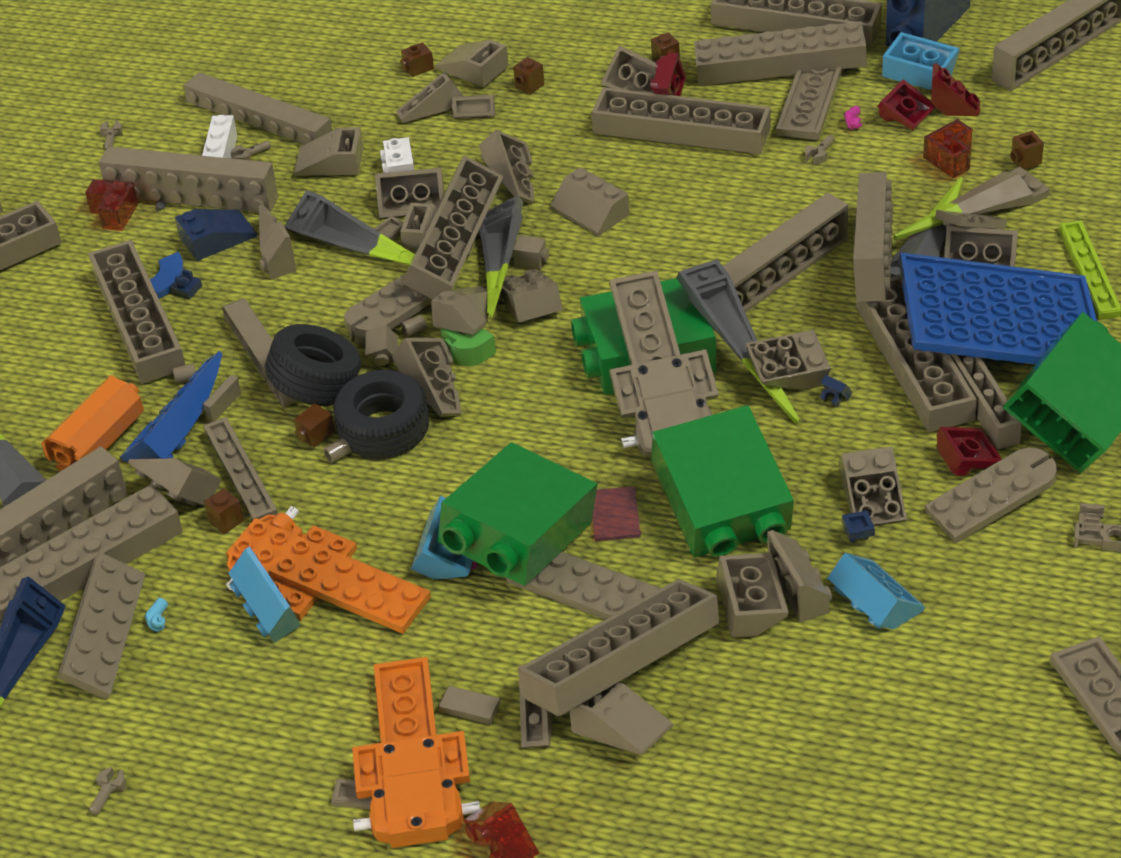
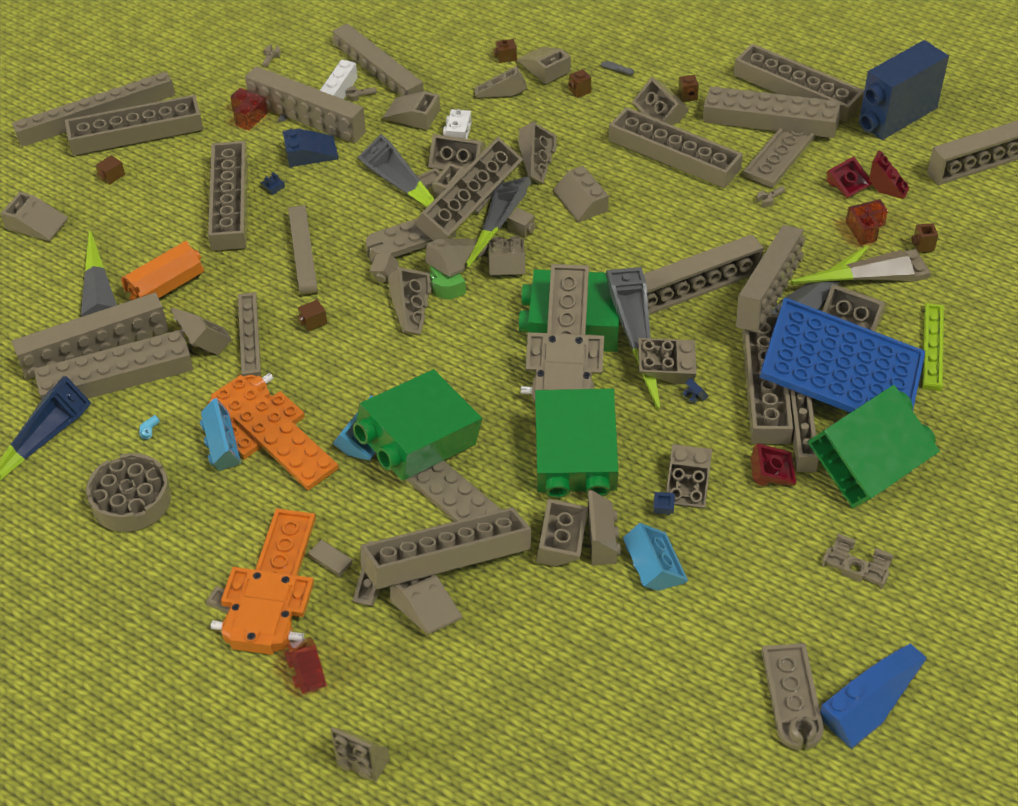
camera: 15 degrees right, 5 degrees up
(101, 626) = (106, 424): dark tan plate -> none
(102, 780) = (63, 544): dark tan bar -> none
(169, 268) = (266, 169): blue tile -> none
(170, 698) = (129, 492): none -> dark tan brick
(177, 417) = (216, 288): blue wedge -> none
(183, 373) = (243, 251): dark tan hinge -> none
(221, 398) = (259, 277): dark tan tile -> none
(223, 511) = (224, 362): reddish brown brick -> none
(274, 246) = (342, 172): dark tan wedge -> none
(311, 363) = (326, 270): black tyre -> none
(337, 450) = (321, 338): dark tan hinge -> none
(375, 393) = (361, 337): black tyre -> none
(413, 325) = (415, 257): dark tan hinge -> none
(473, 106) = (530, 97): dark tan tile -> none
(563, 48) = (611, 65): none -> dark grey piece
(616, 514) = (495, 442): clear pink piece -> none
(669, 75) = (678, 111): dark red slope -> none
(851, 118) = (804, 176): dark pink arm -> none
(914, 57) = (871, 137): dark azure slope -> none
(969, 220) = (855, 284): dark tan wing -> none
(993, 493) = (777, 505): dark tan plate -> none

